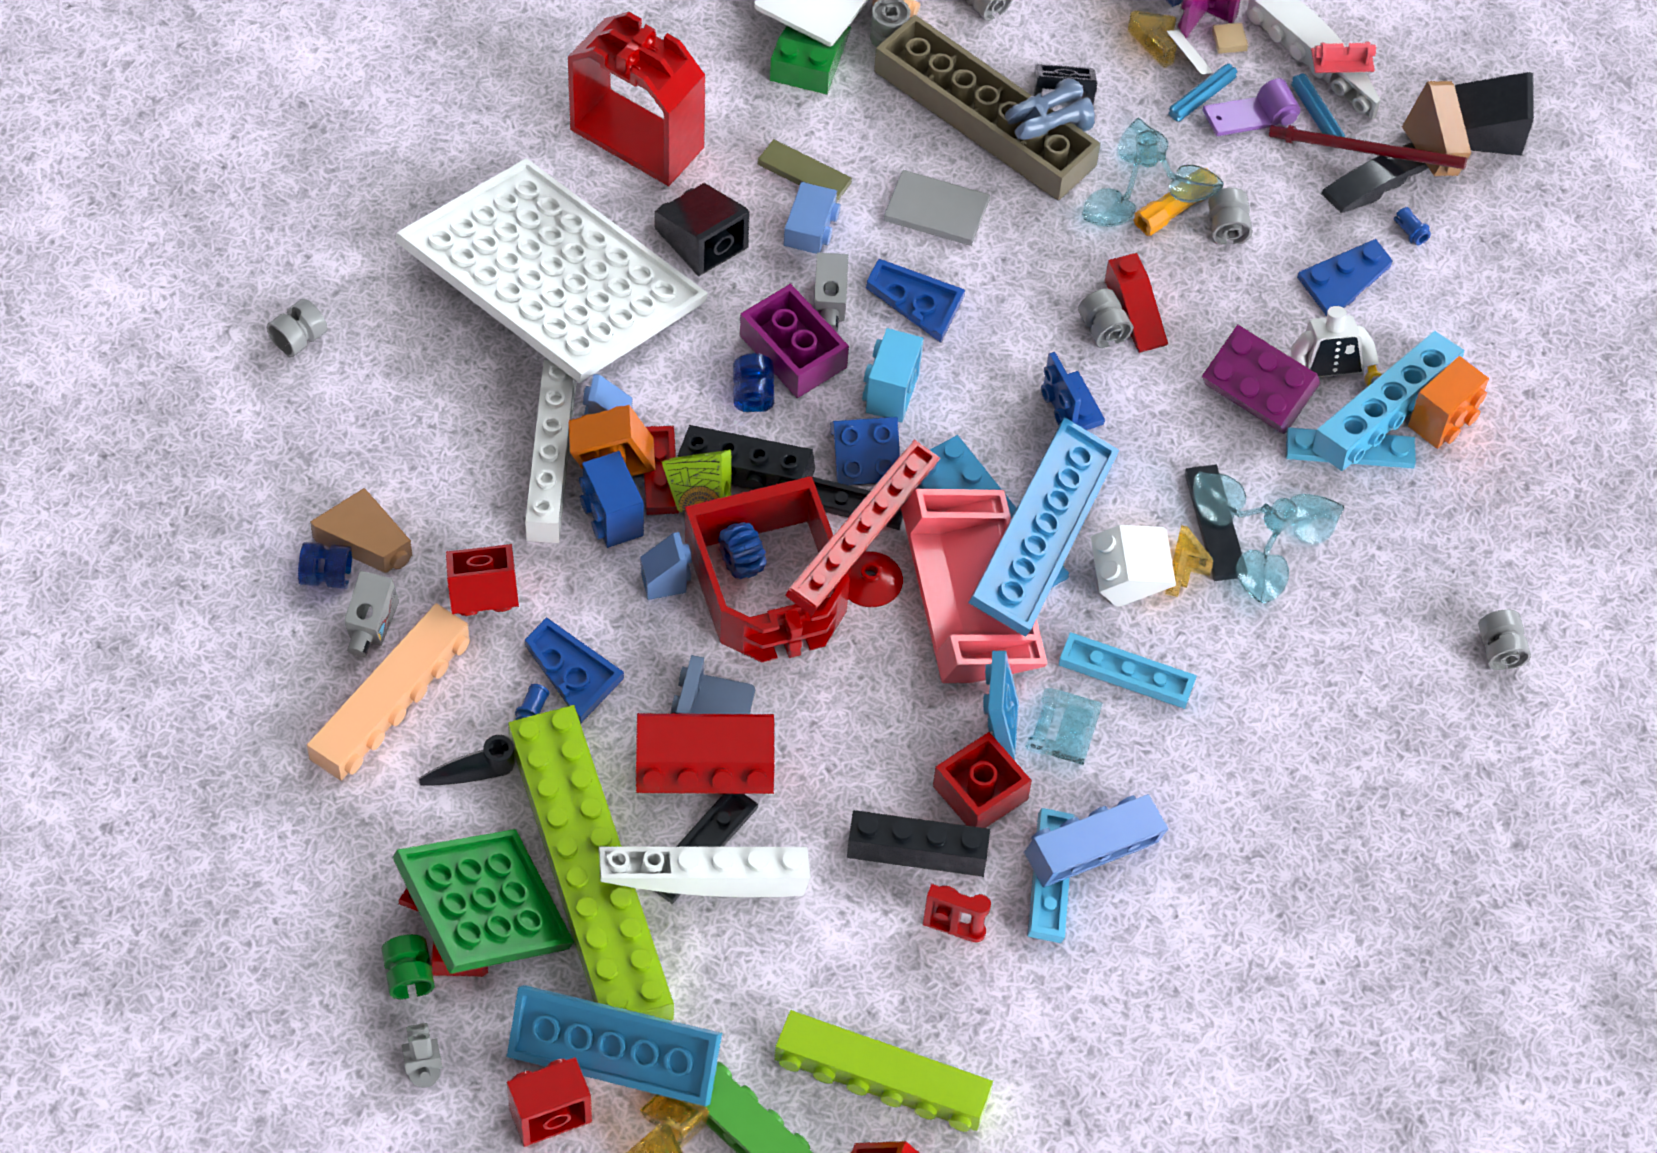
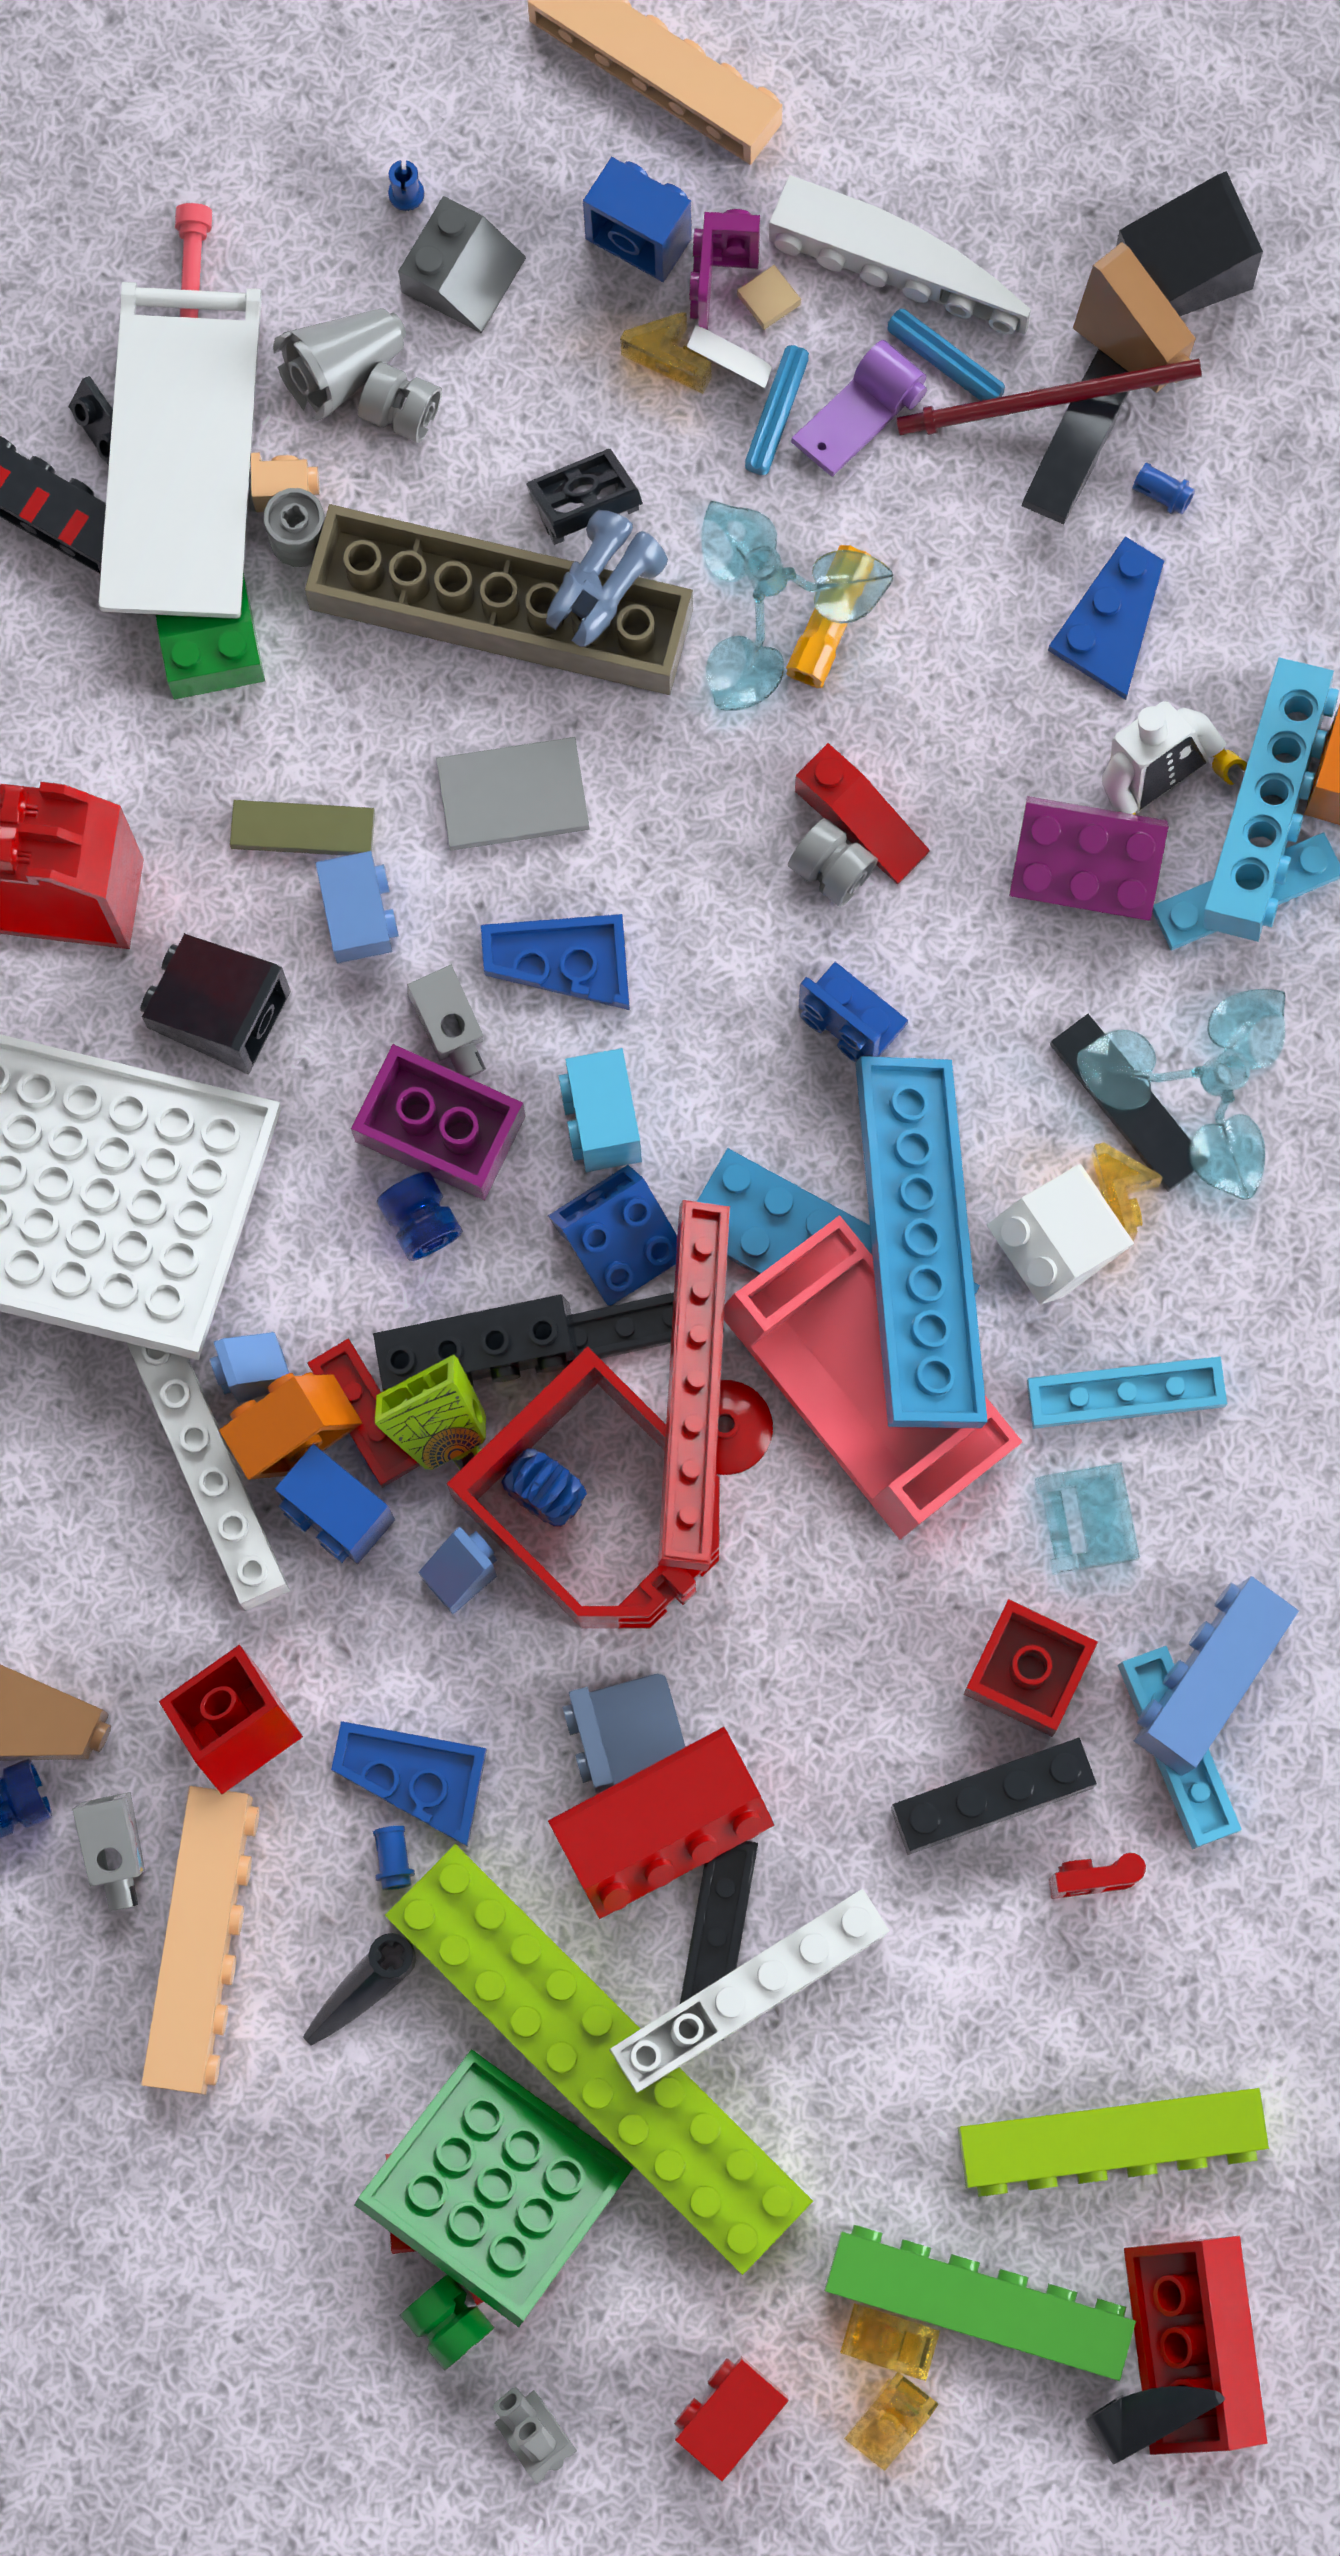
camera: 20 degrees left, 20 degrees up
(615, 1044) = (772, 2303): dark azure plate -> none
(1001, 702) = (1013, 1569): dark azure plate -> none
(1230, 216) = (918, 607): light grey wheel -> none
(1337, 58) = (952, 270): coral hinge -> none

